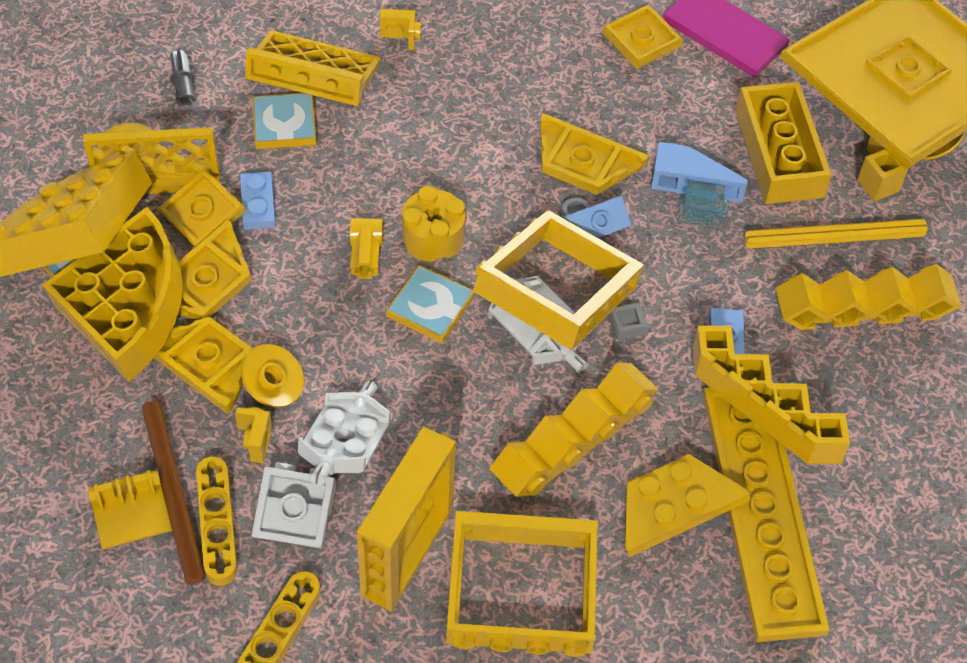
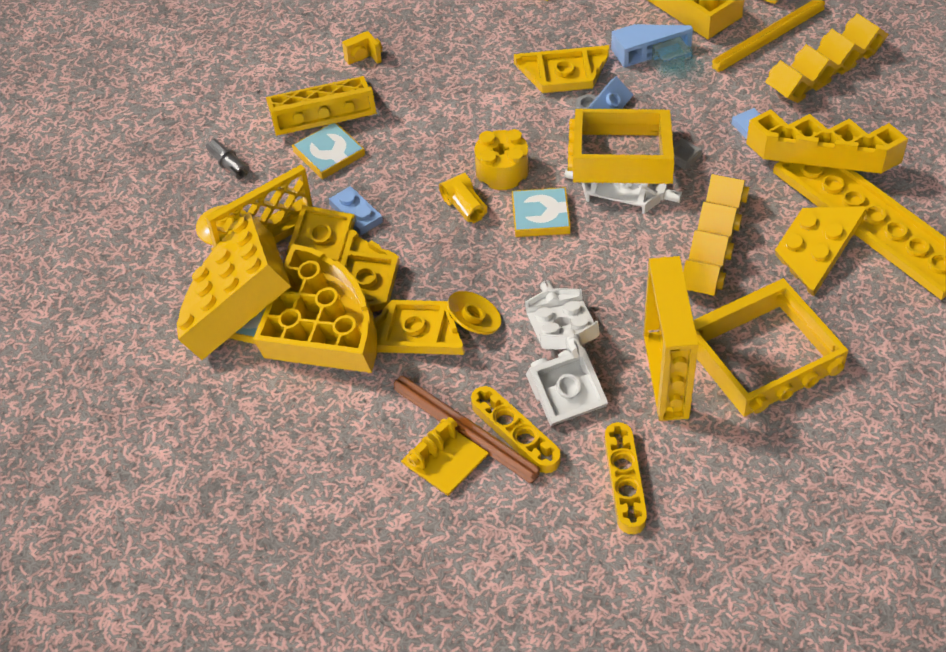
camera: 25 degrees left, 5 degrees down
(257, 431) = (494, 351): yellow bracket -> none

